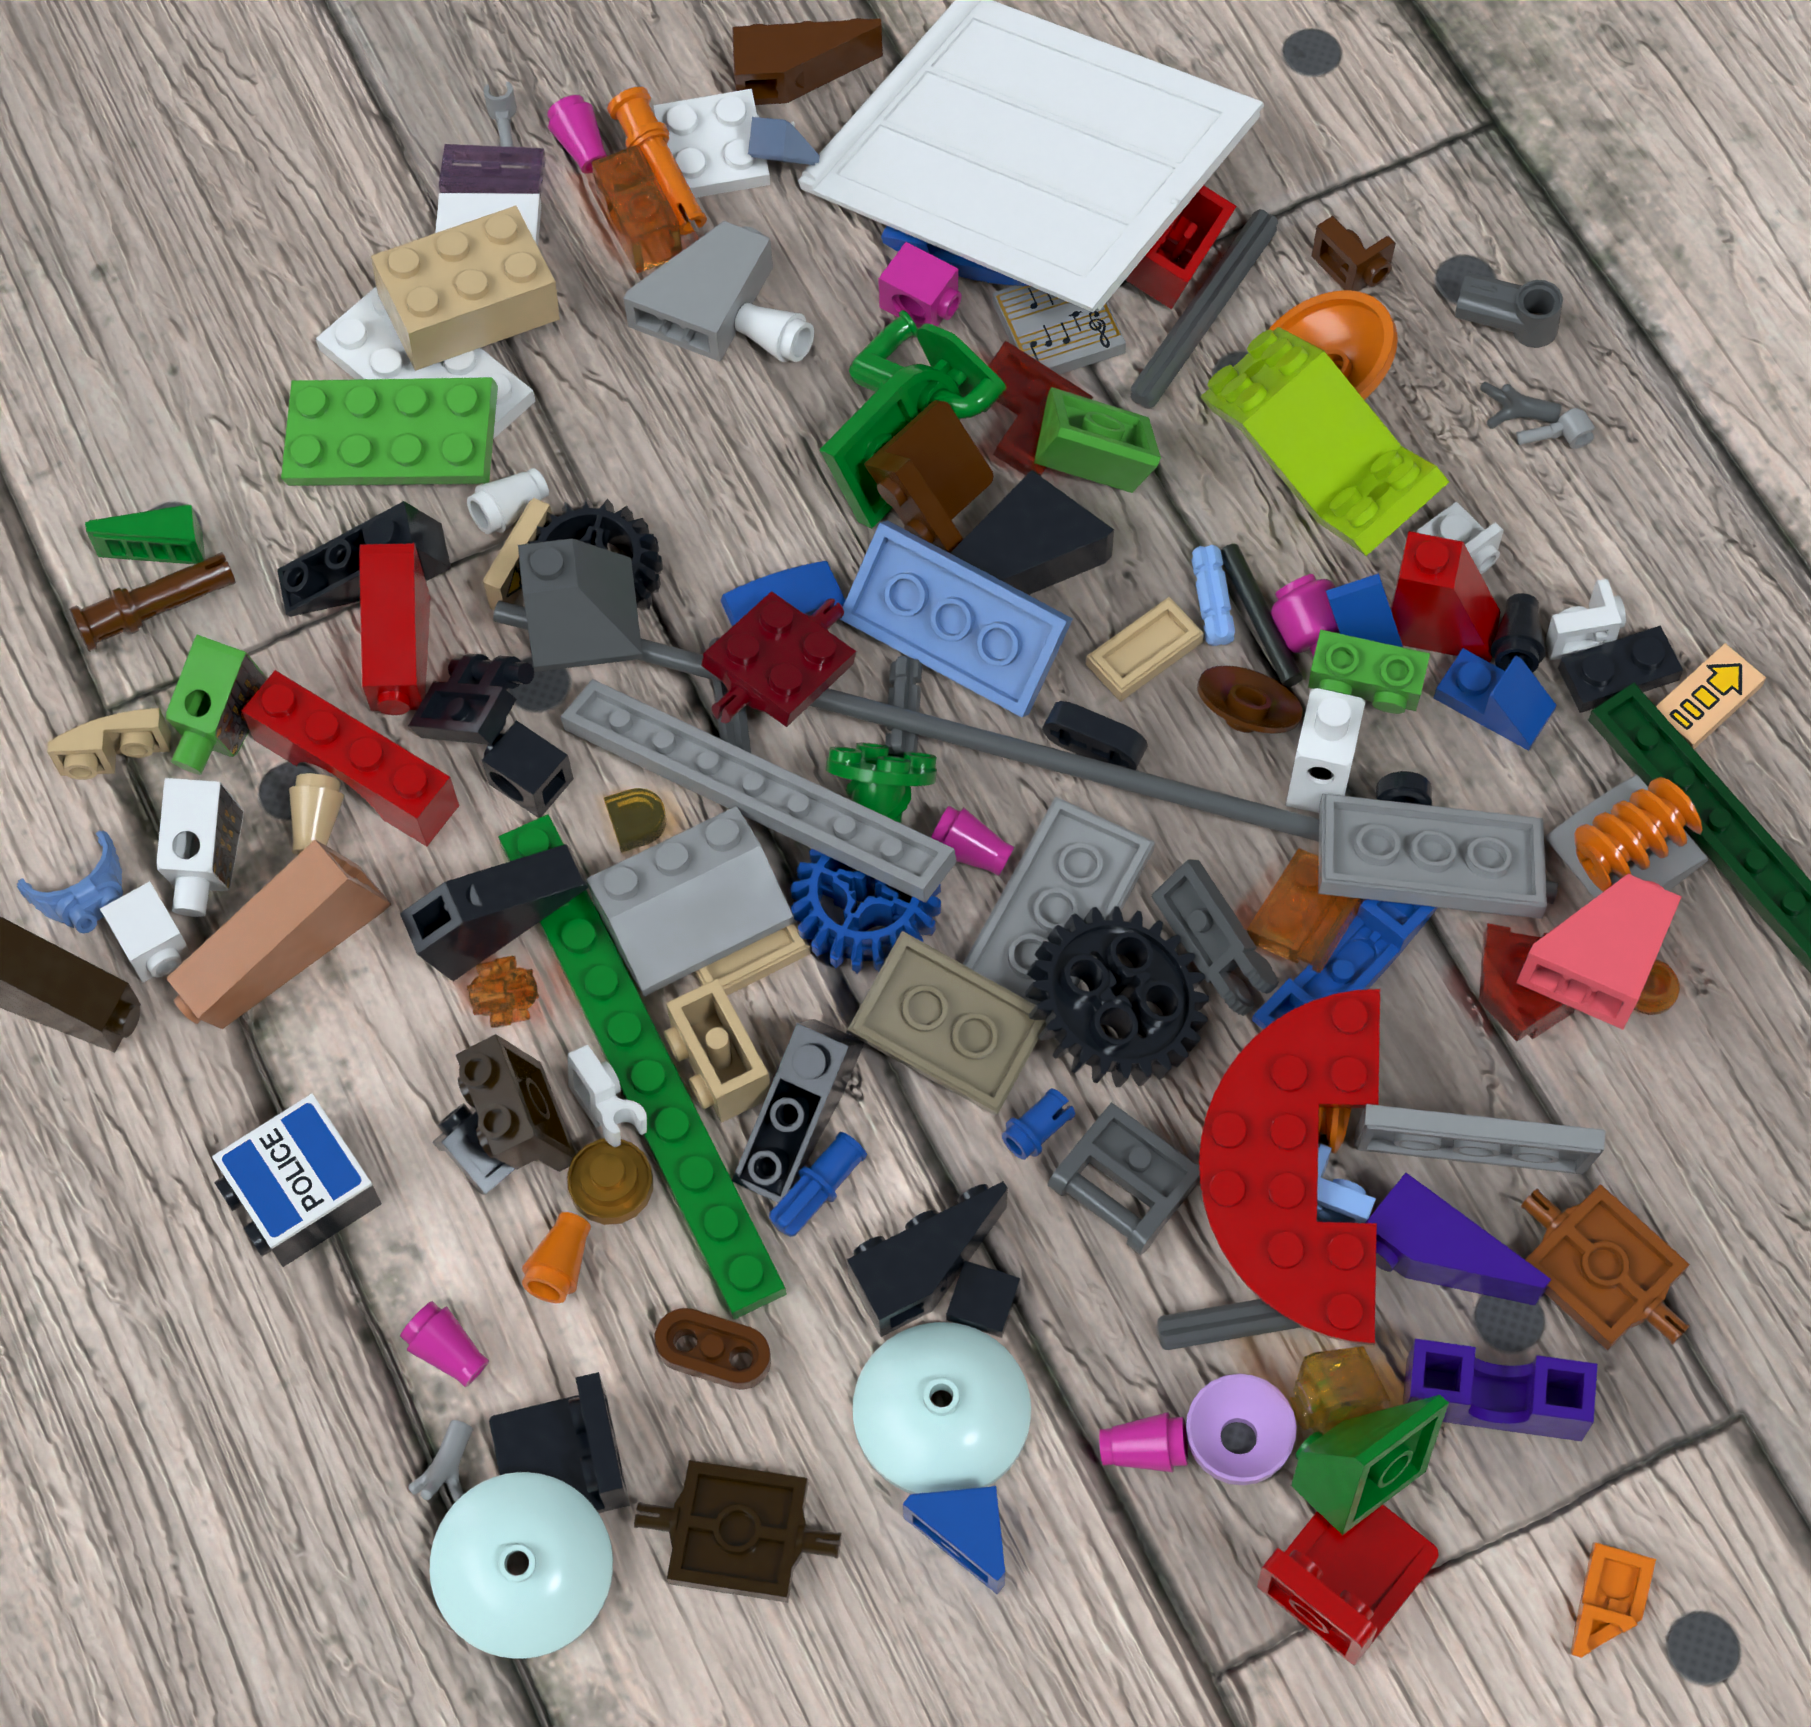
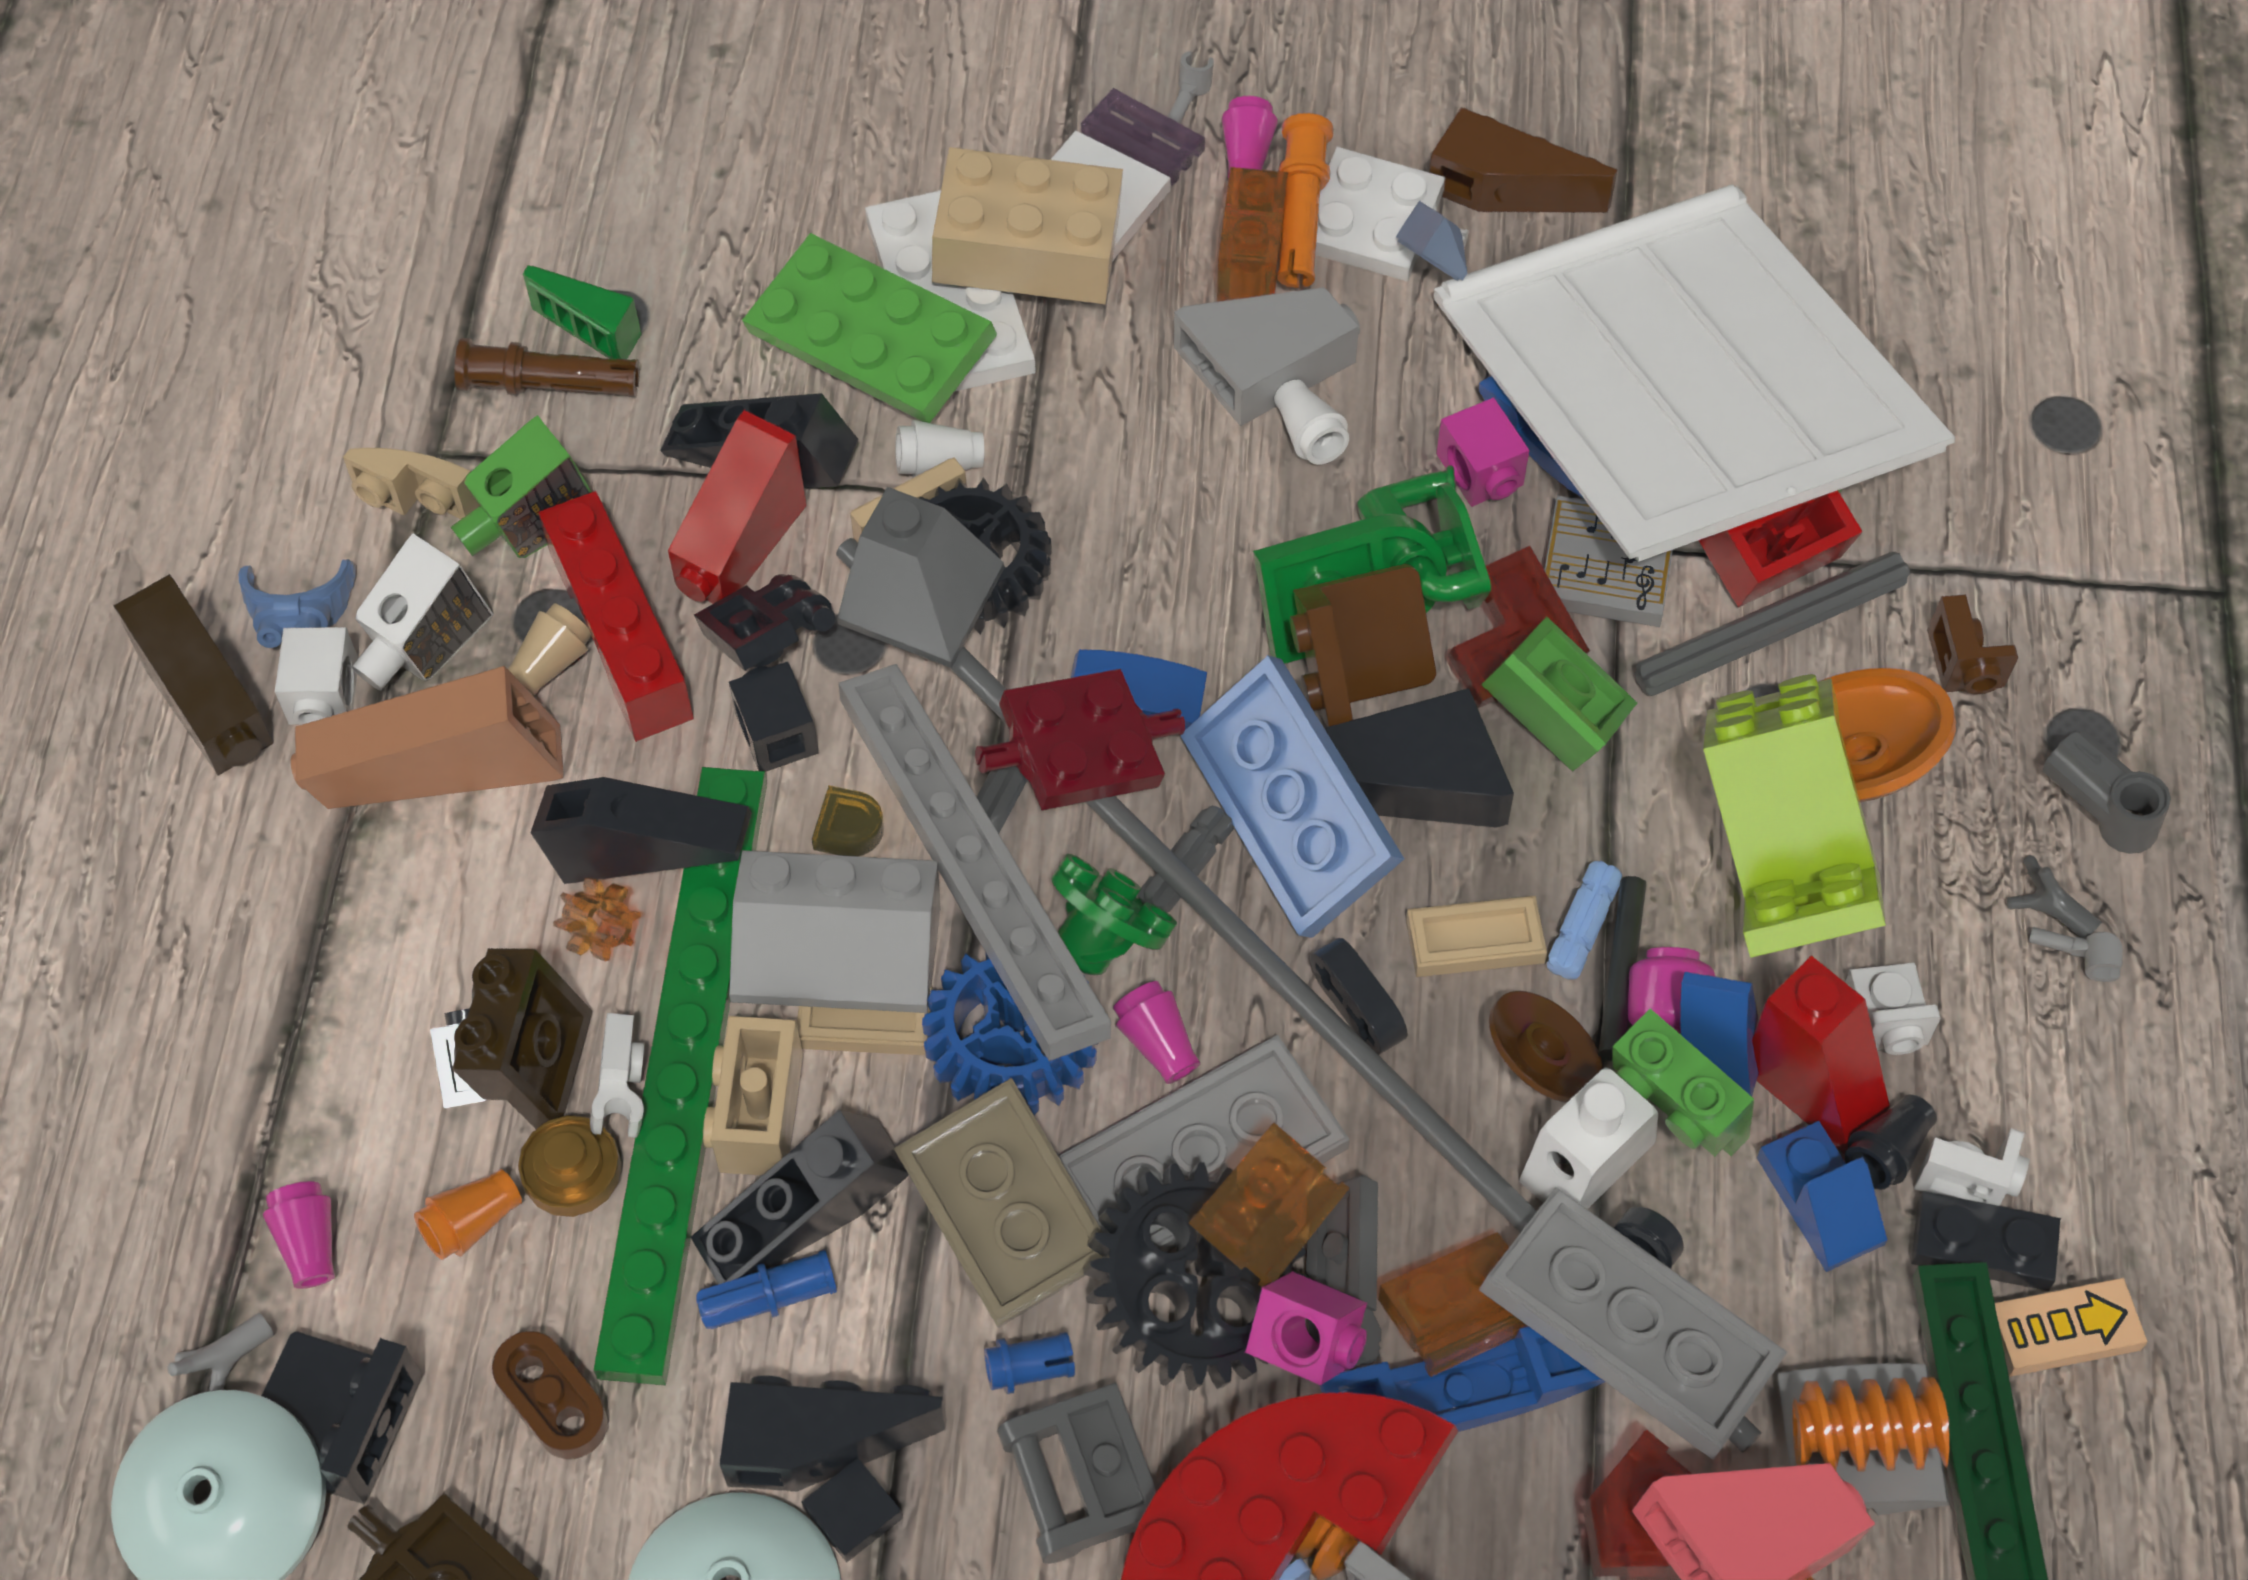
camera: 30 degrees right, 5 degrees down
(294, 1181) = (279, 990): piece -> none
(1143, 916) = (1269, 1205): none -> clear orange plate
(1215, 1006) = (1281, 1331): none -> dark pink brick

